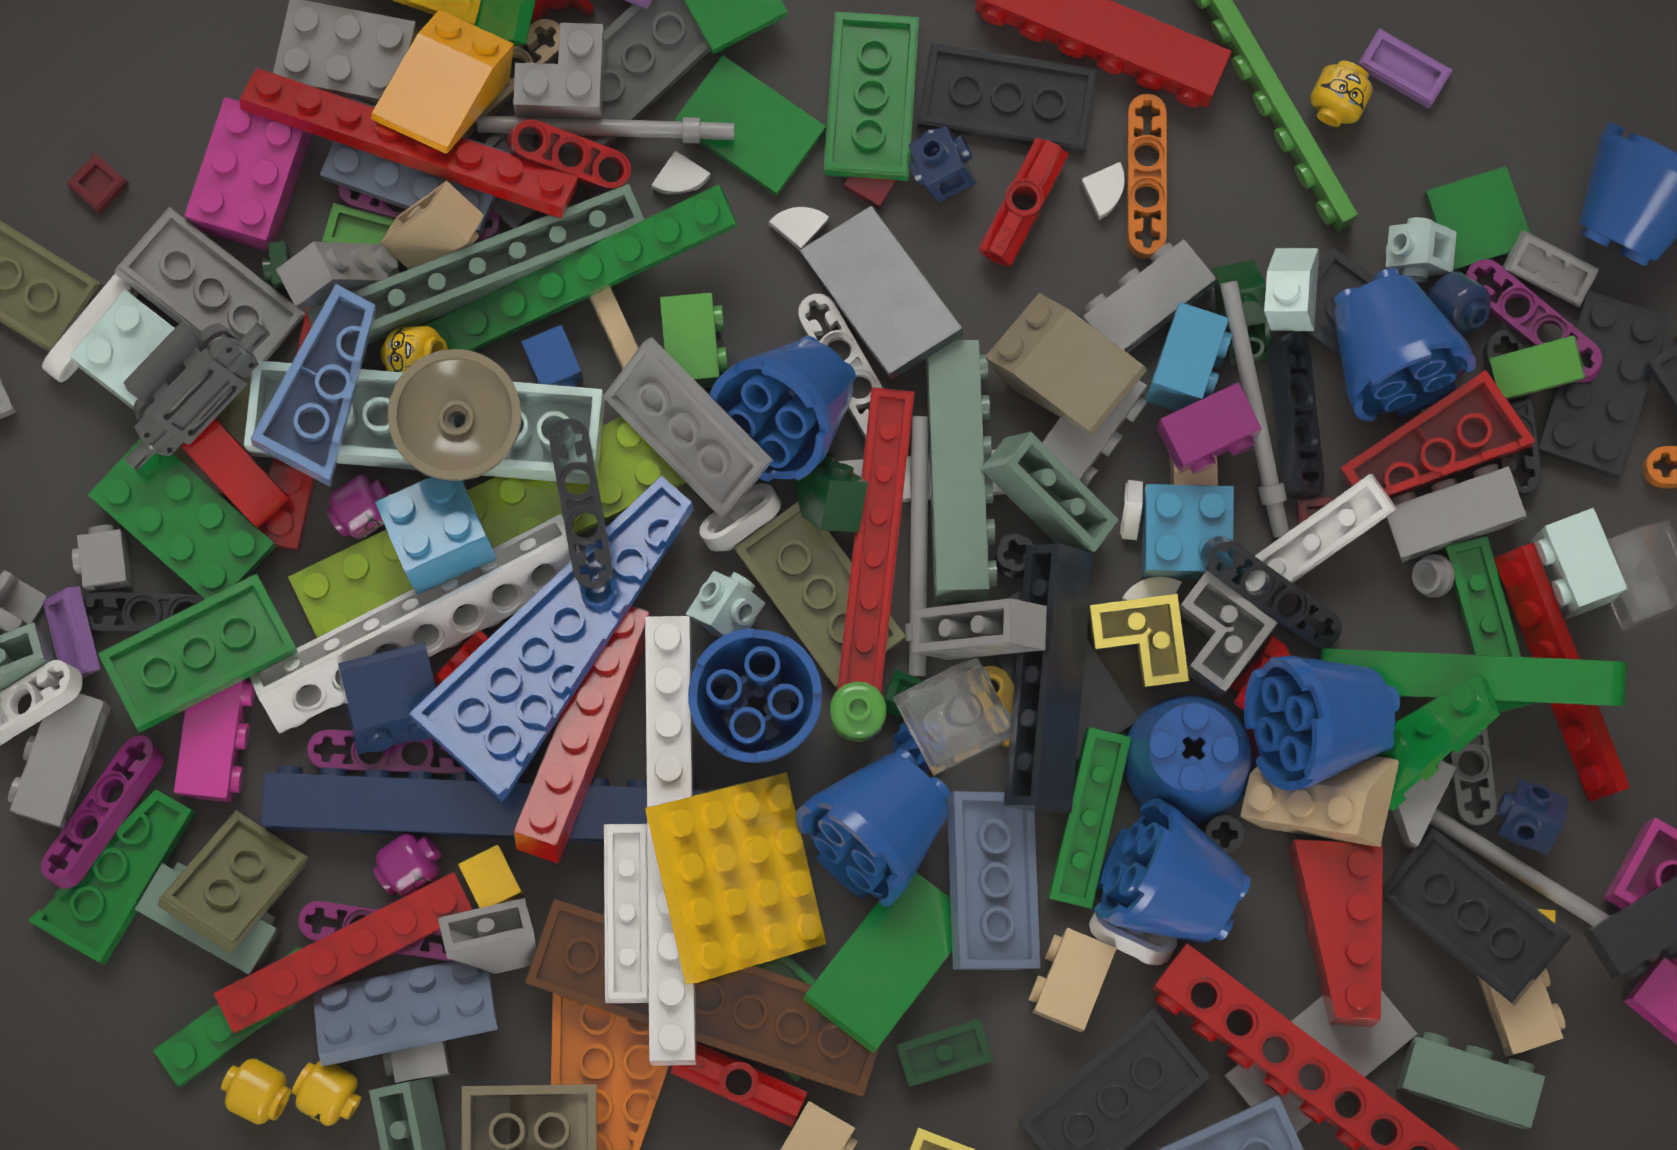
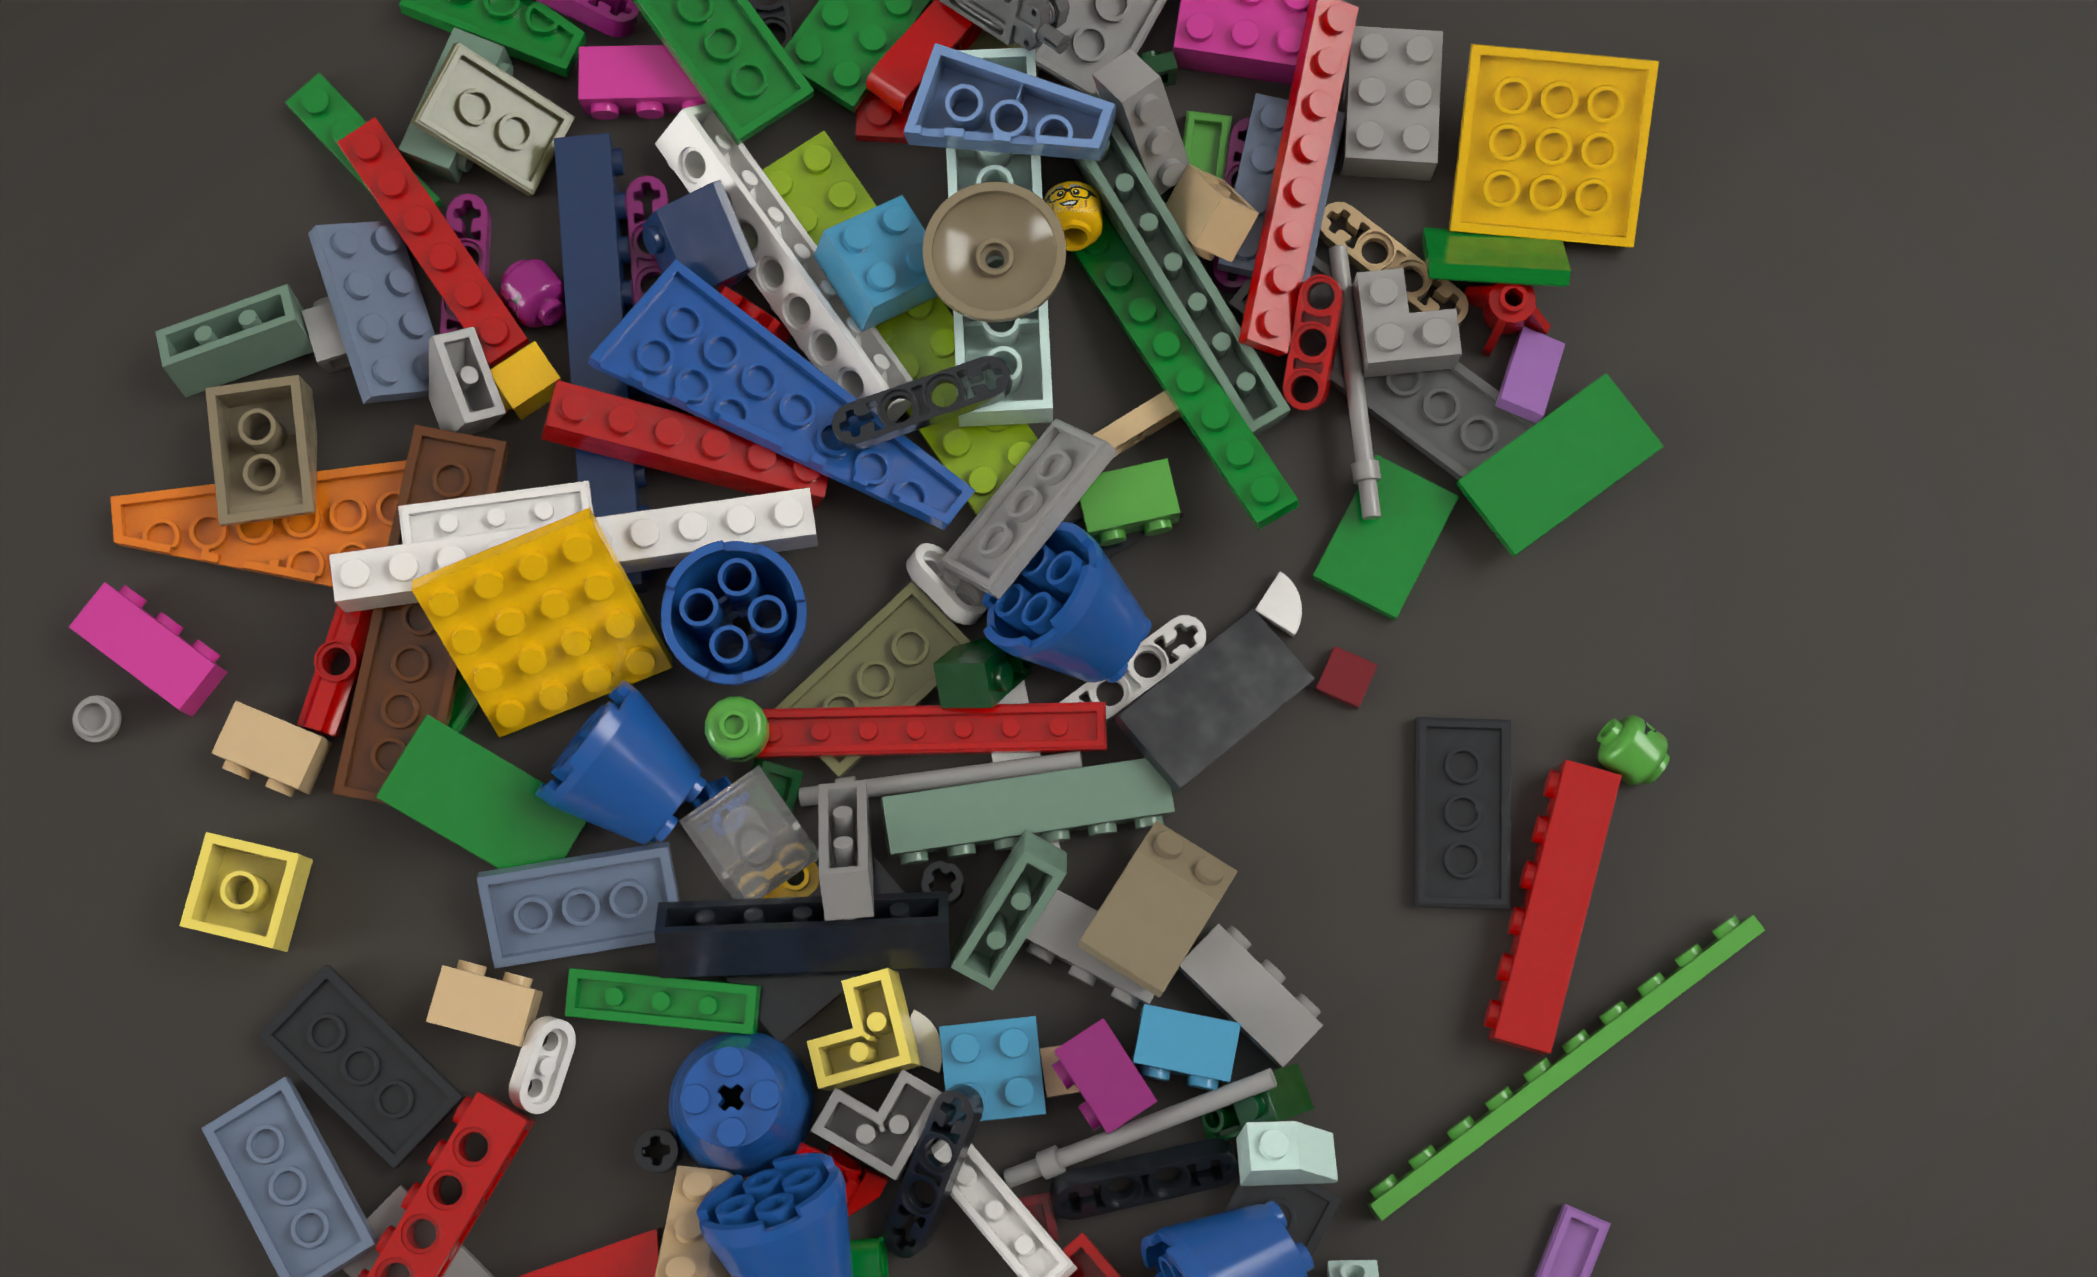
camera: 85 degrees right, 0 degrees up
(256, 1091) = (284, 177): yellow head -> none
(326, 1093) = (287, 247): yellow head -> none
(354, 506) = (912, 180): magenta head -> none
(445, 81) = (1371, 199): light orange slope -> none
(553, 358) = (1089, 365): blue brick -> none
(680, 176) = (1317, 471): white tile -> none
(725, 604) = (845, 581): light aqua brick -> none
(871, 96) = (1439, 663): green tile -> none
(942, 163) = (1371, 747): dark blue brick -> none
(944, 1053) = (394, 877): dark green plate -> none
(1033, 180) = (1372, 852): red piece -> none
(1104, 189) = (1374, 934): white tile -> none
(1132, 509) = (1013, 1006): white tile -> none
(1150, 176) = (1396, 983): orange beam -> none
(1170, 878) = (597, 1095): blue cone -> none
(1341, 93) = (1523, 1187): yellow head -> none

